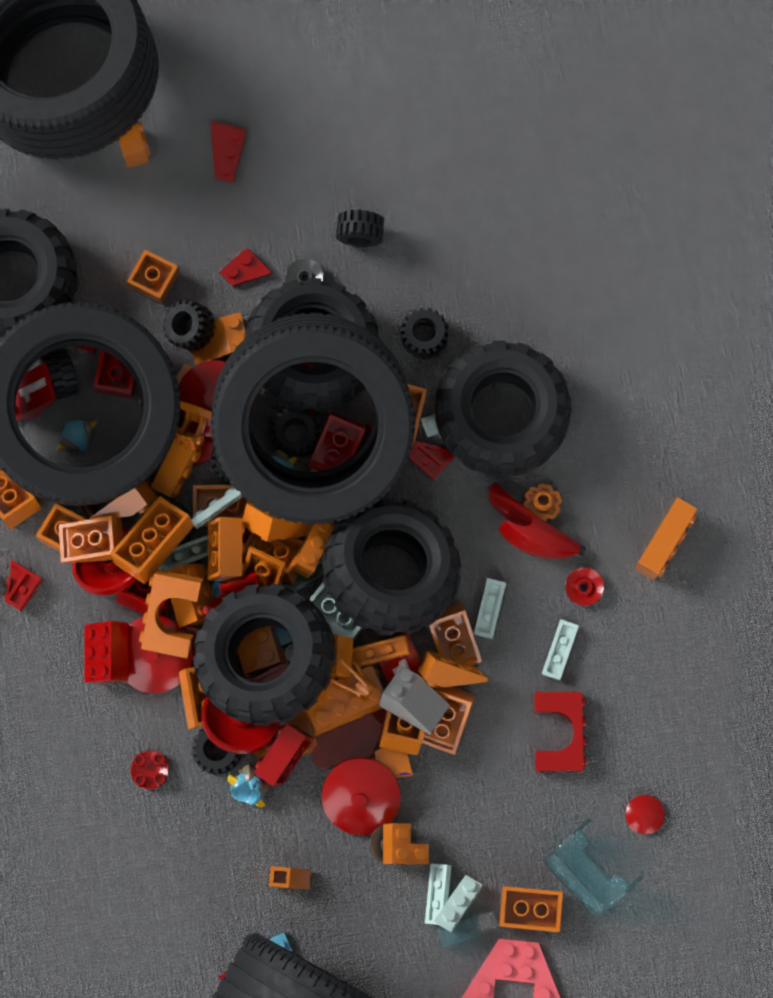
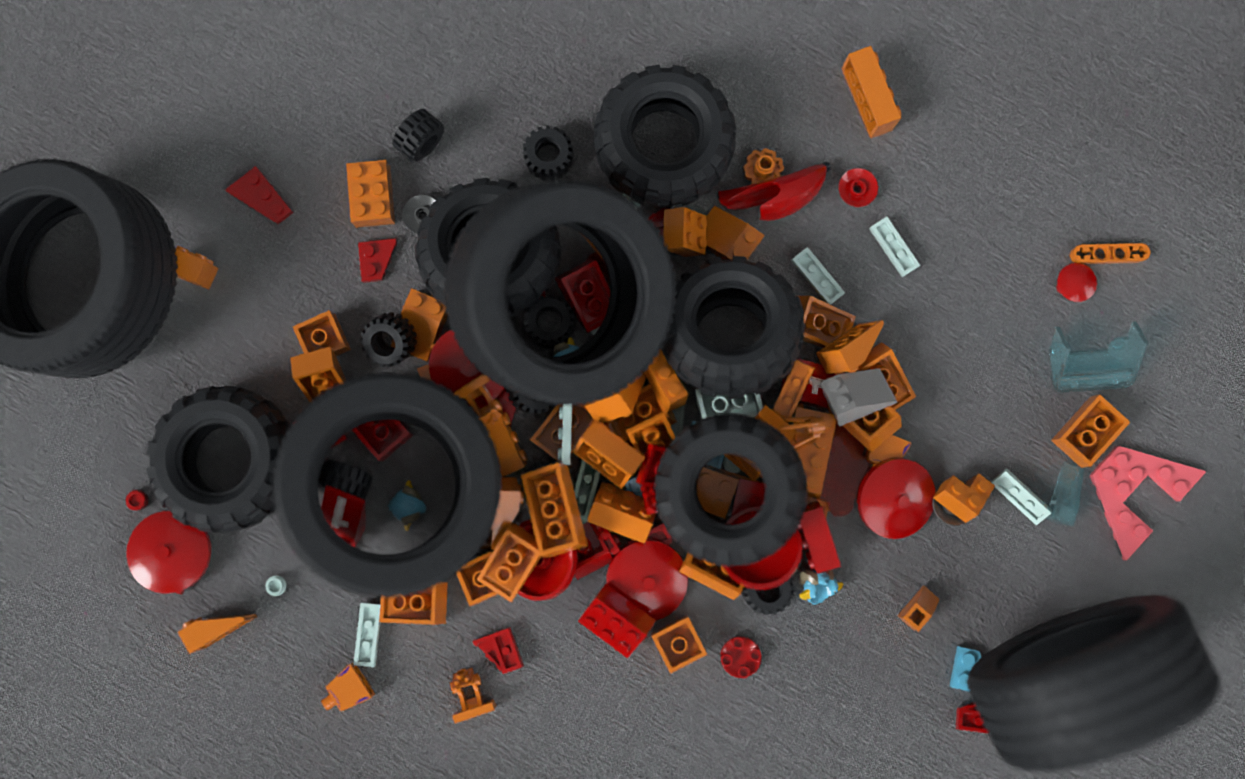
camera: 55 degrees left, 5 degrees up
(124, 292) = (316, 372): none -> orange slope
(124, 713) = (678, 644): none -> orange brick
(156, 635) = (639, 567): orange arch -> none
(290, 227) = (370, 193): none -> orange brick
(442, 480) = (685, 231): none -> orange brick
(458, 903) = (1044, 486): light aqua plate -> none
(467, 516) = (730, 236): none -> orange slope
(570, 706) = (988, 303): red arch -> none
(687, 825) = (1110, 256): none -> orange beam

